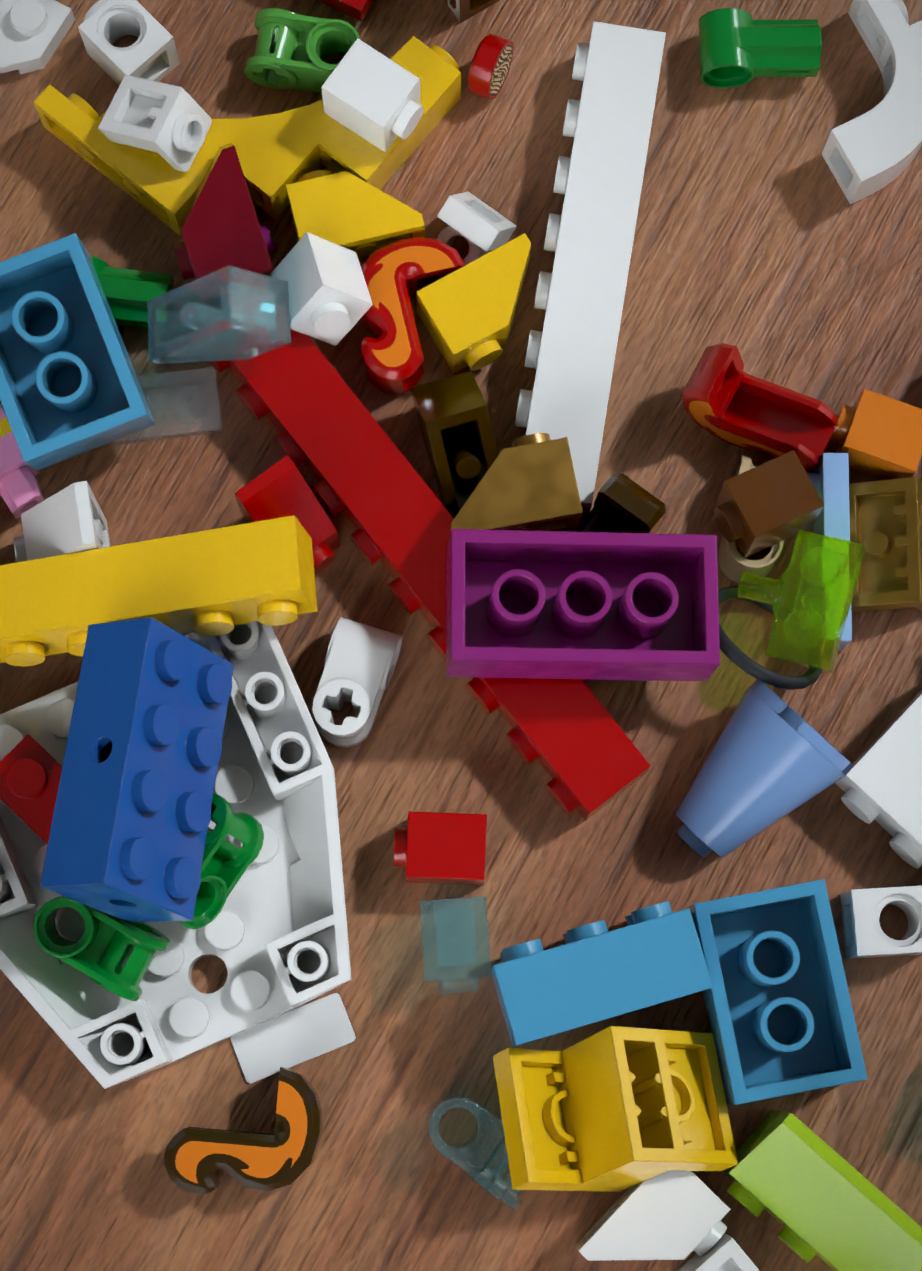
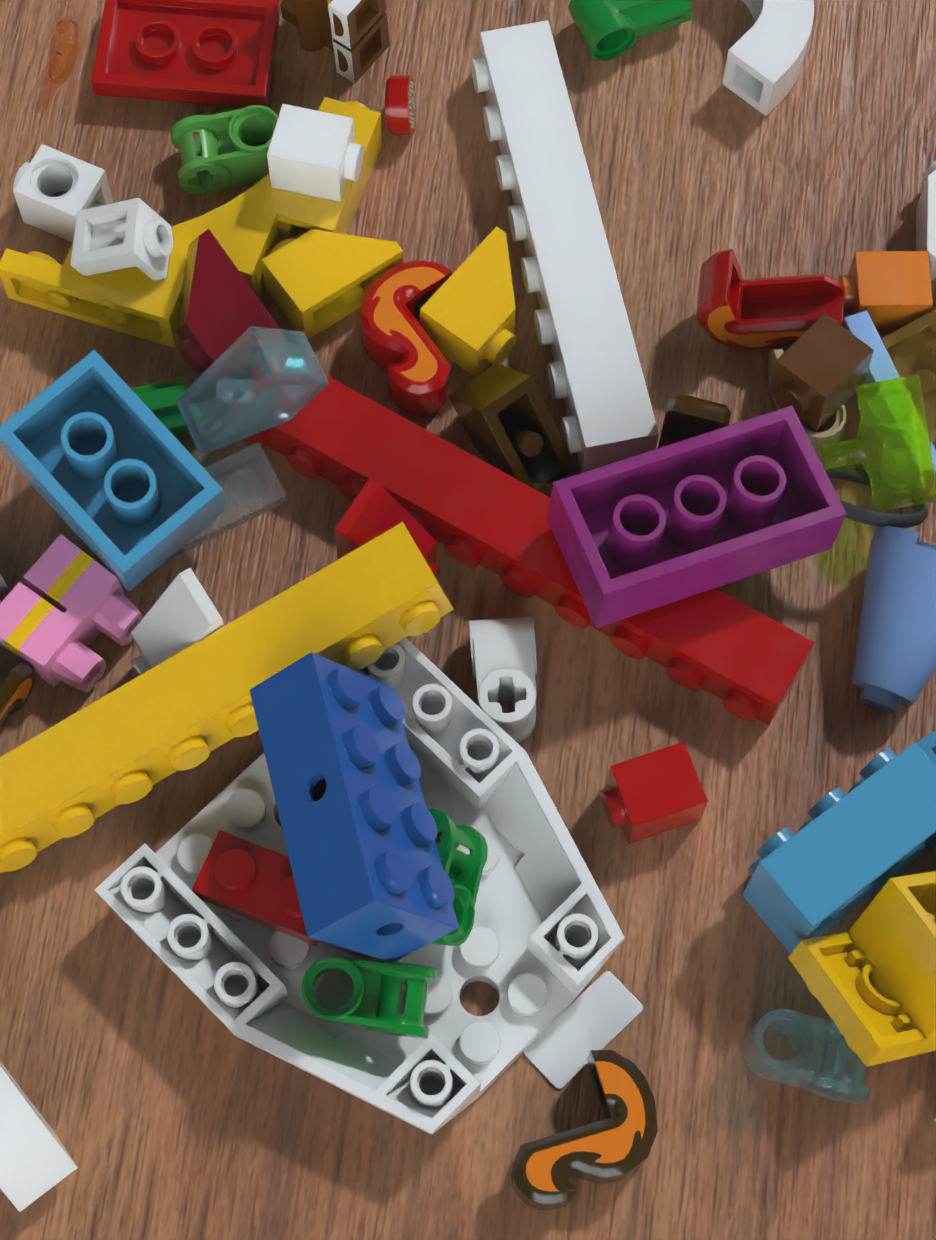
camera: 20 degrees left, 10 degrees down
(323, 288) = (338, 332): white brick -> none
(456, 943) = (702, 875): clear light blue brick -> none
(475, 222) = (443, 240): white tile -> none
(526, 489) = (599, 428): pearl gold slope -> none

